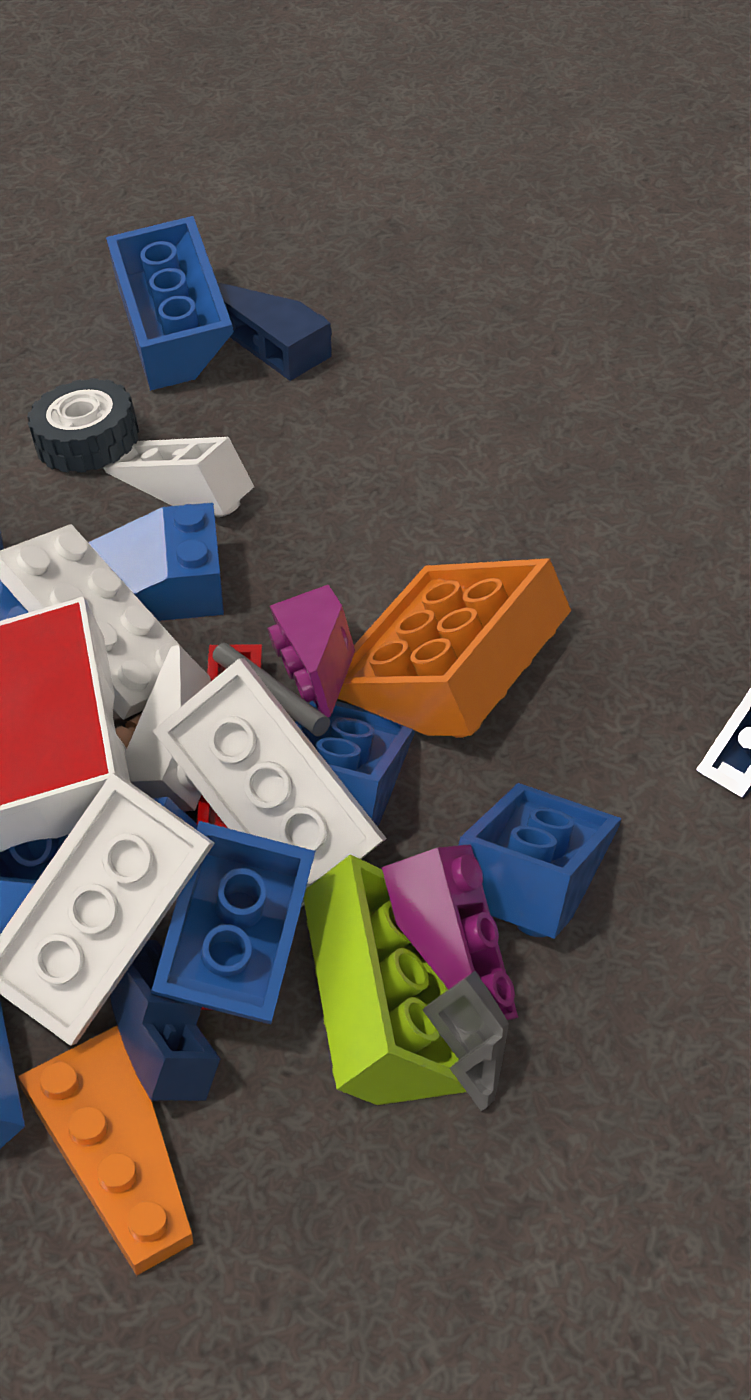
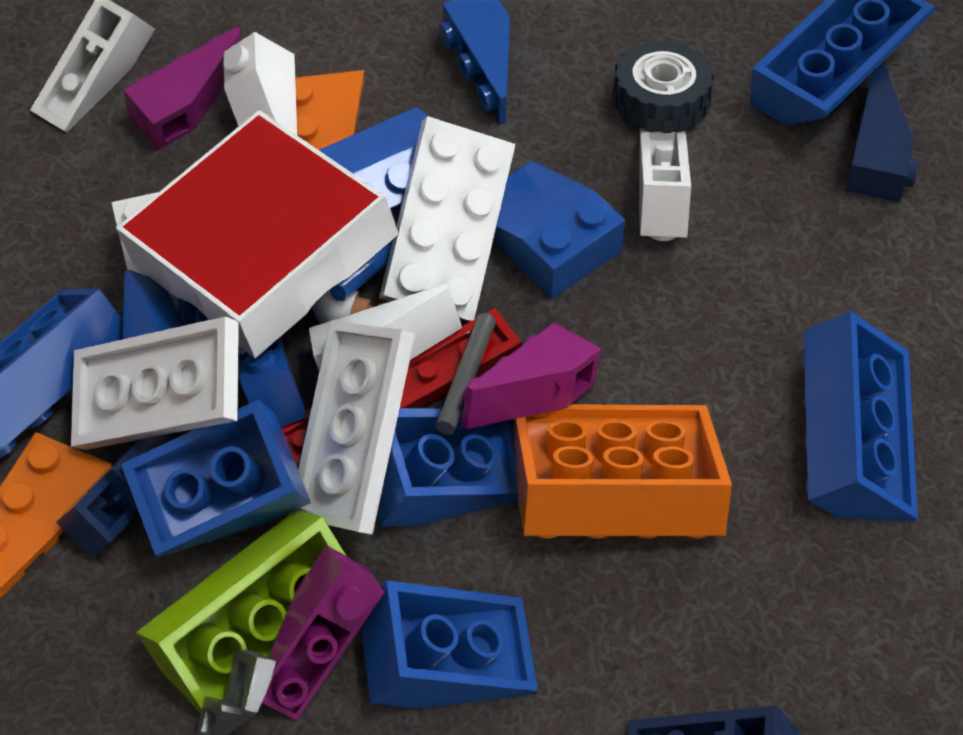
camera: 55 degrees right, 10 degrees up
(525, 477) = (858, 422): none -> blue slope

